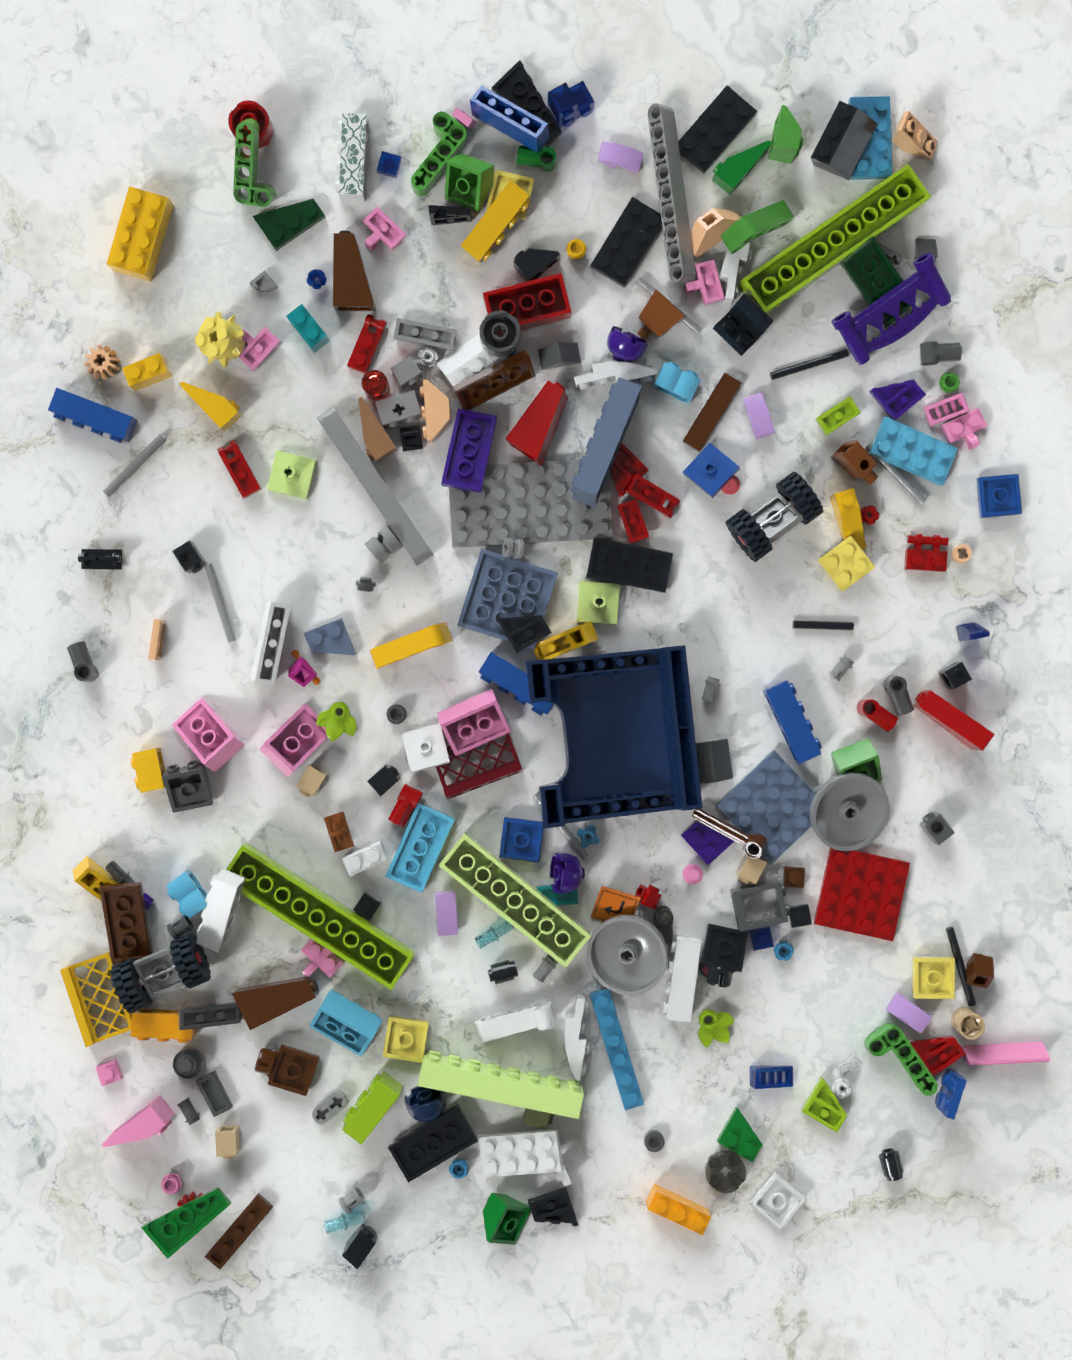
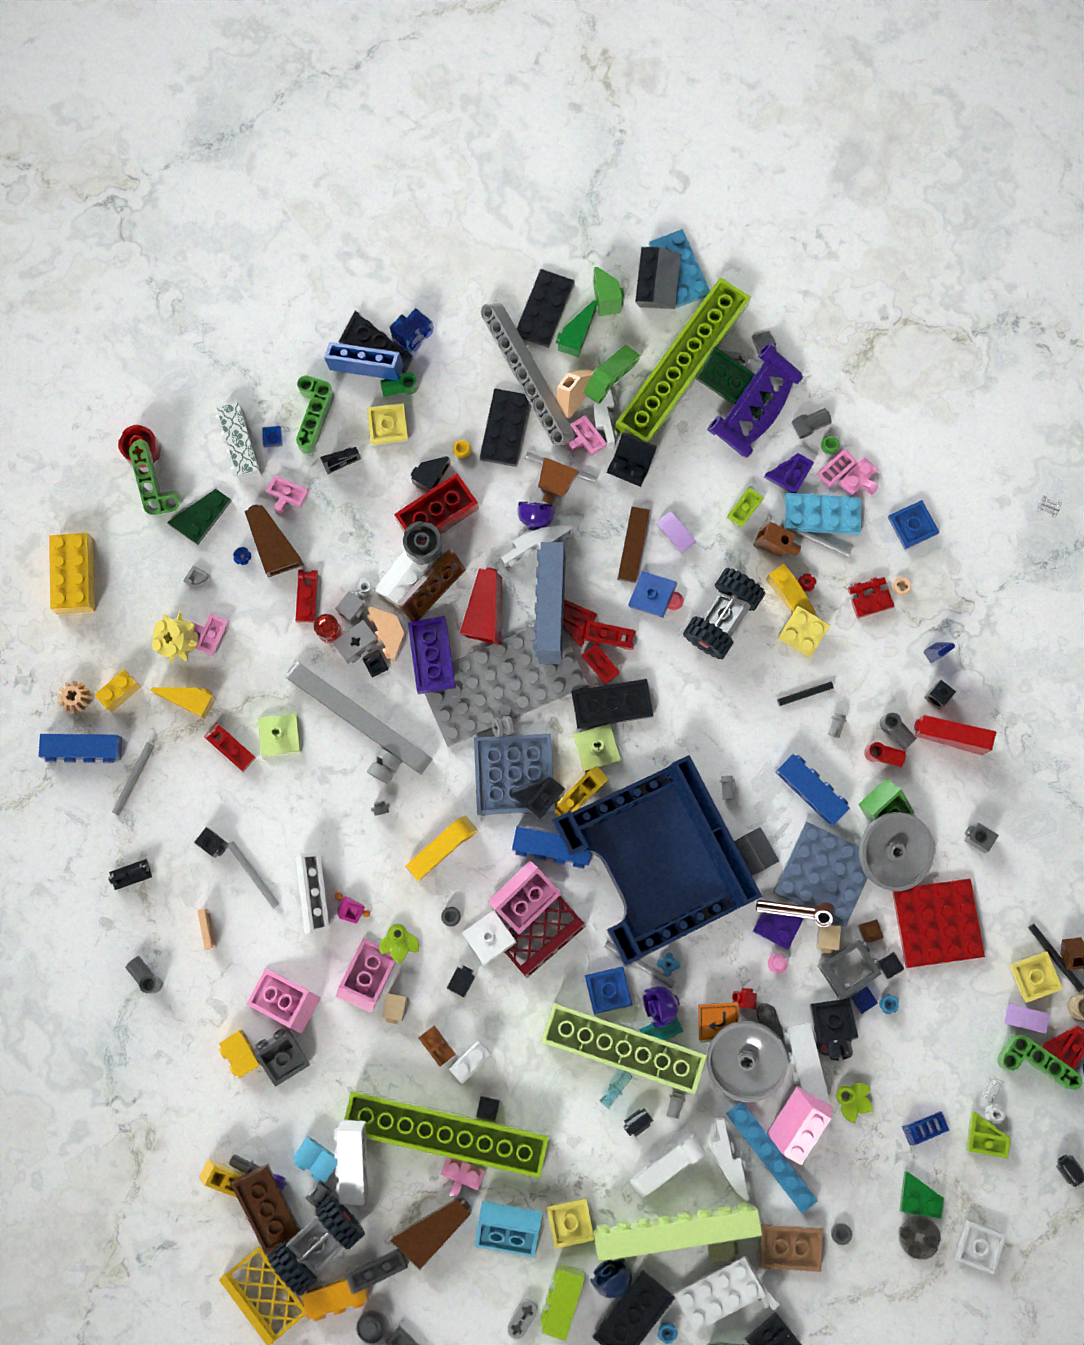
camera: 15 degrees left, 10 degrees down
(288, 1068) = (468, 1295): reddish brown plate -> none
(308, 328) = (249, 601): teal brick -> none
(330, 639) = (366, 870): sand blue wing -> none
(375, 437) = (344, 675): medium nougat slope -> none
(407, 800) = (489, 995): red piece -> none
(420, 847) = (517, 1033): medium azure plate -> none
(425, 334) = (355, 569): light grey plate -> none
(446, 913) = (564, 1086): lavender slope -> none
(463, 118) = (324, 375): bright pink plate -> none
(468, 181) = (346, 425): bright green slope -> none
(496, 221) = (383, 450): yellow brick -> none
(559, 355) = (480, 544): dark grey slope -> none
(602, 1136) = (791, 1248): none -> medium nougat plate
(620, 155) = (469, 358): lavender slope -> none
(654, 1031) = (800, 1124): none -> bright pink slope
(677, 382) = (593, 530): medium azure brick -> none
(678, 1209) = (890, 1292): light orange brick -> none
(809, 364) = (702, 473): black bar -> none
(914, 137) = (716, 255): light nougat slope -> none

